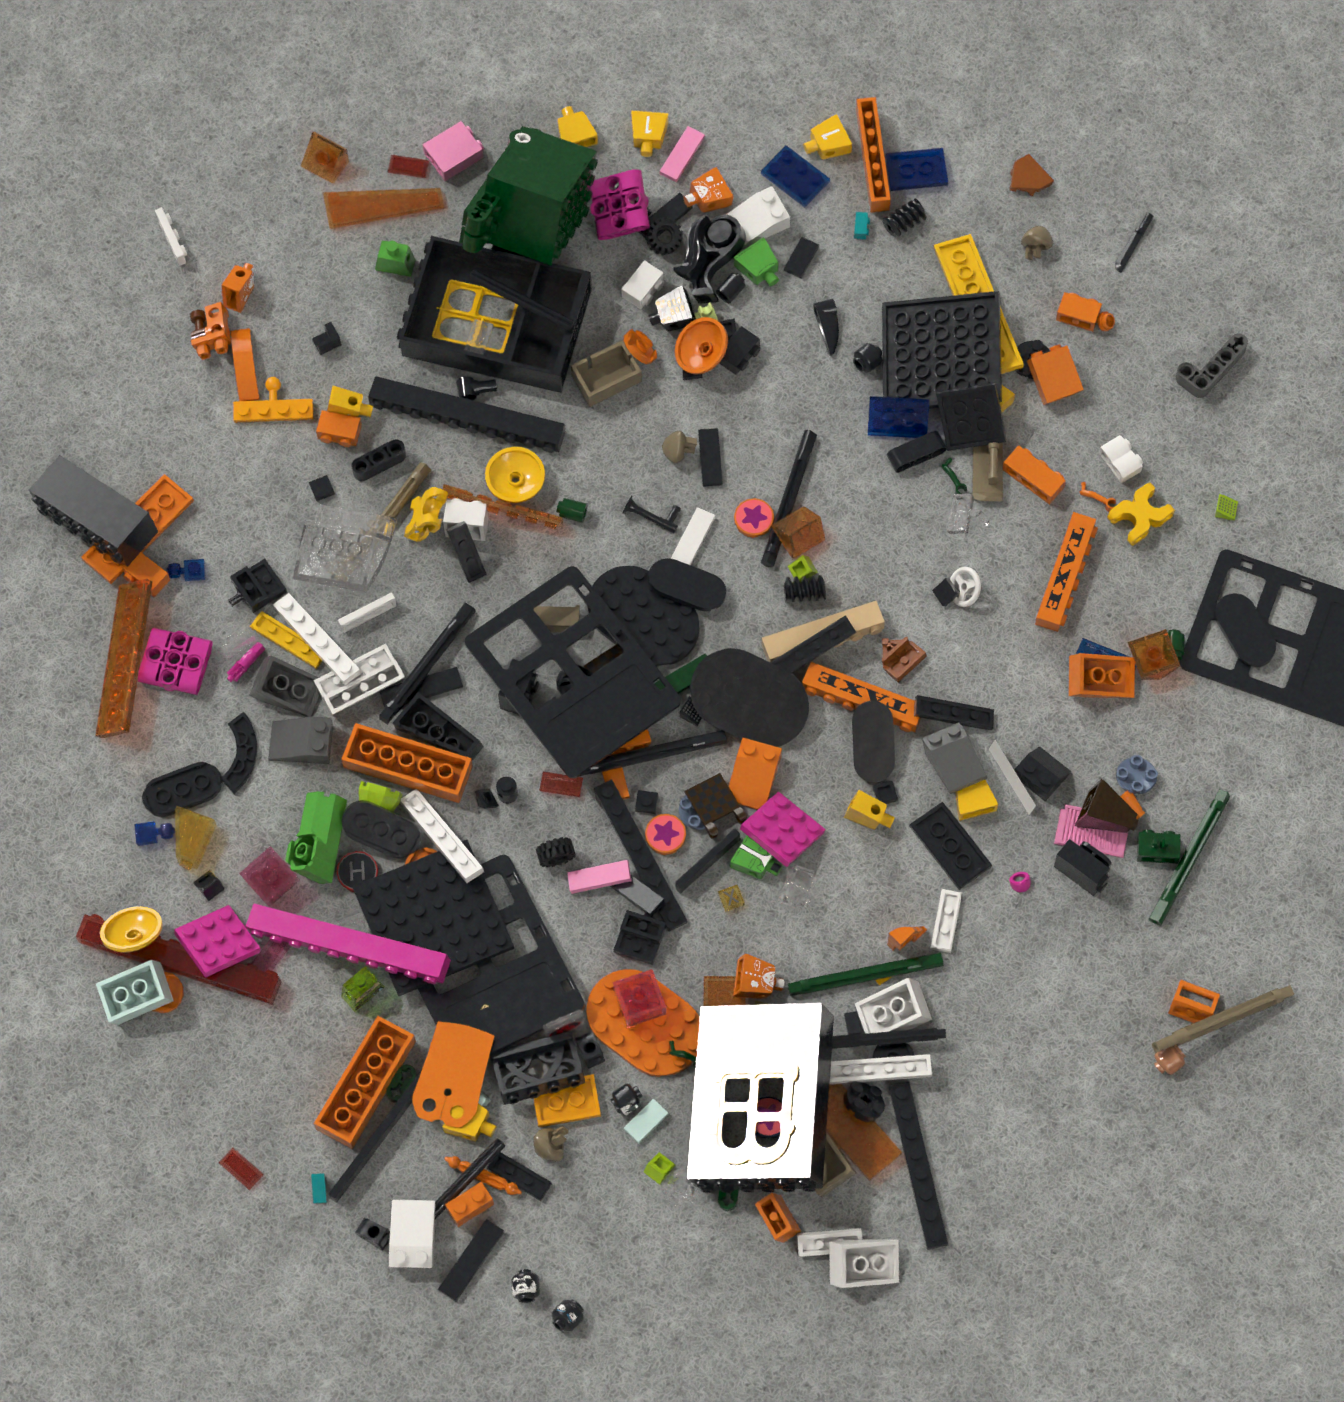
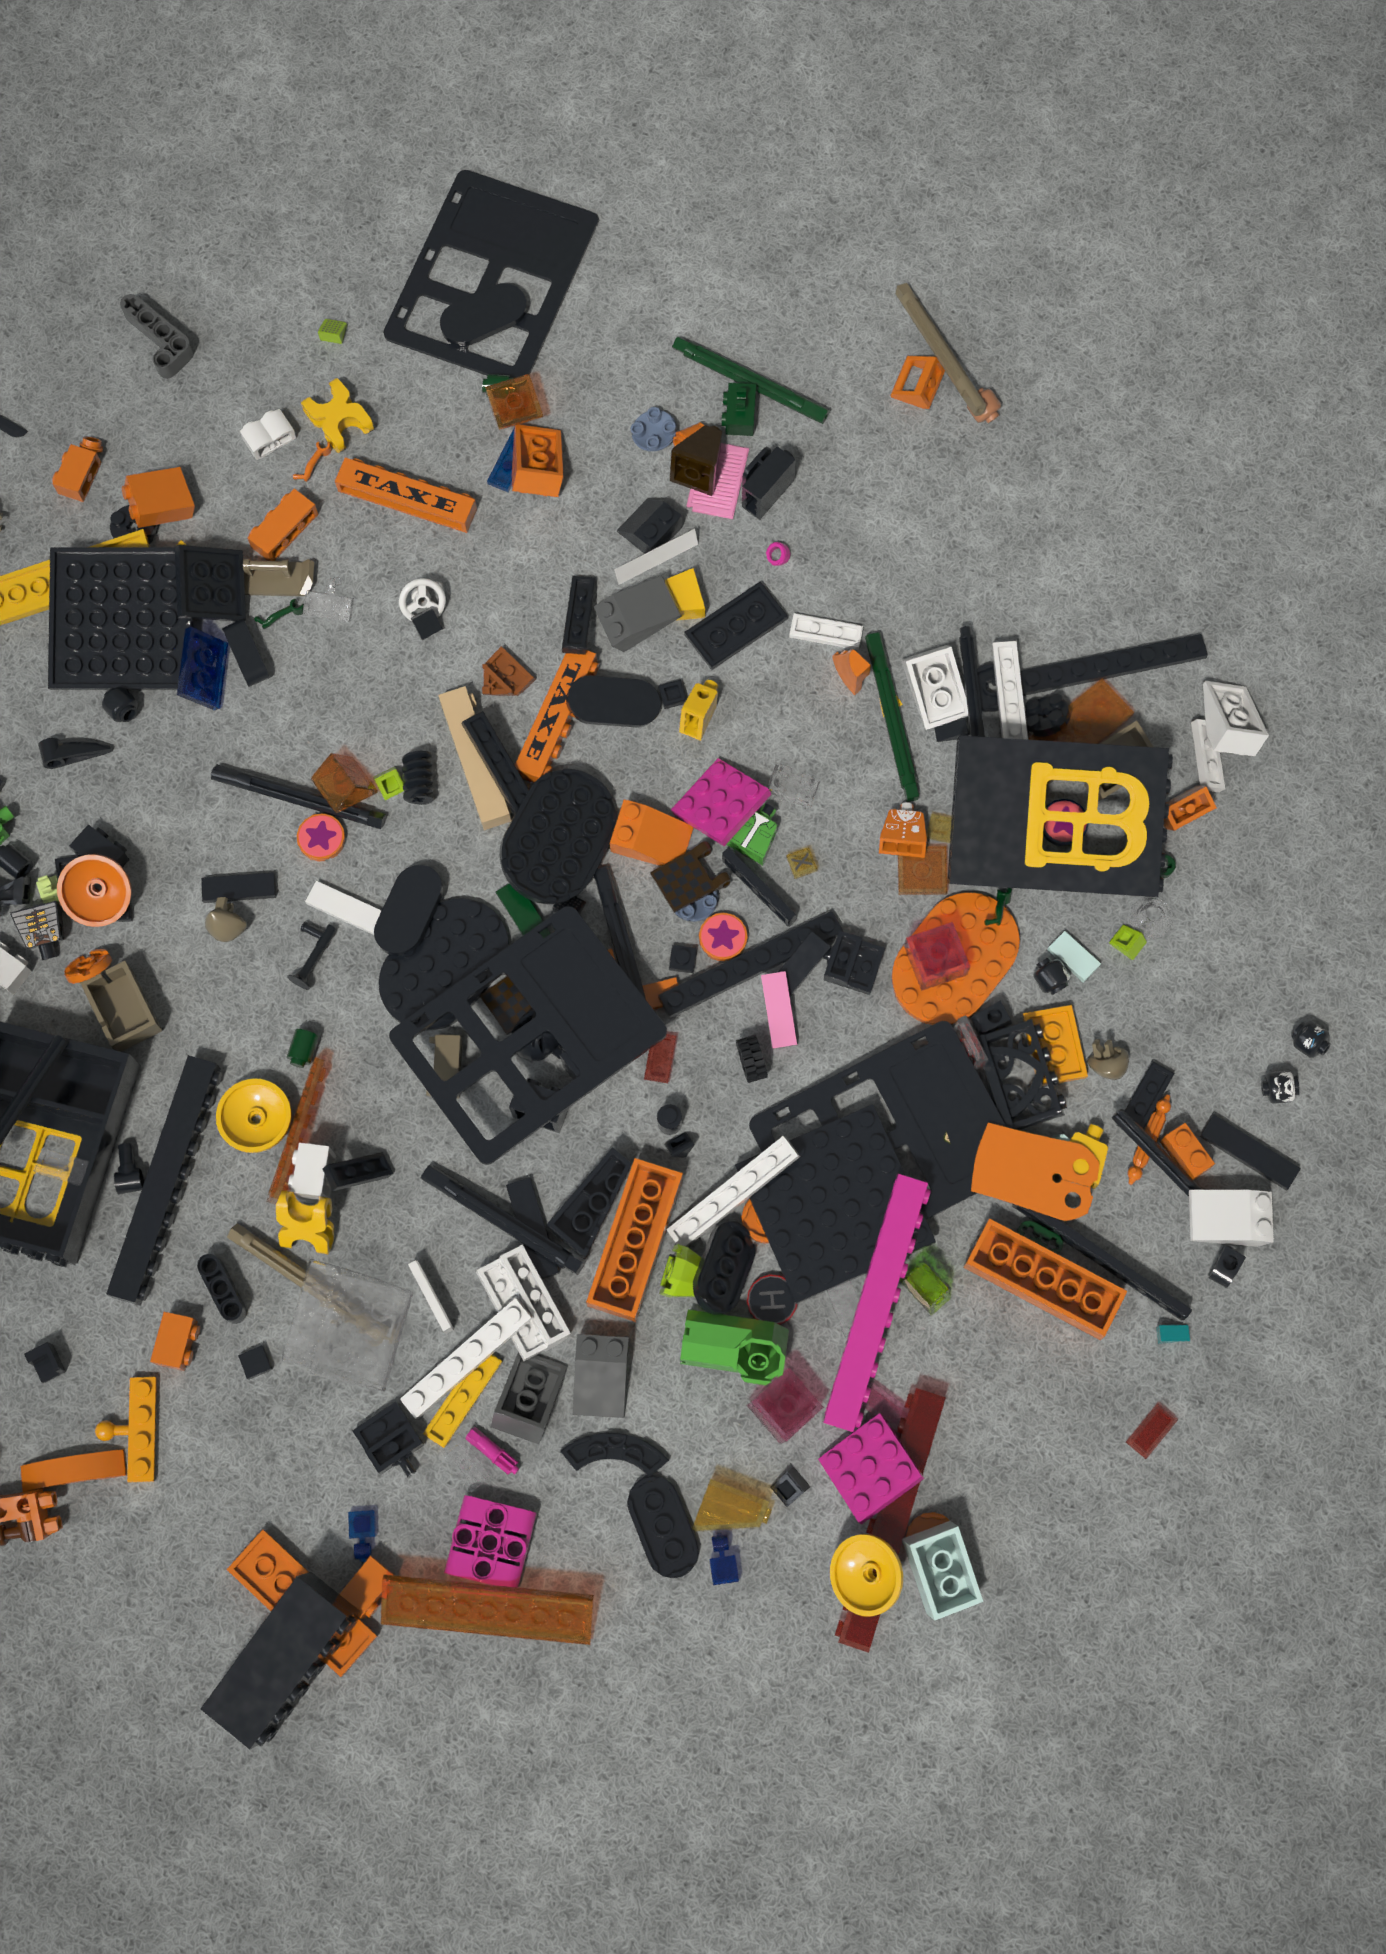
camera: 90 degrees left, 5 degrees up
(348, 403) = (143, 1329): yellow torso -> none

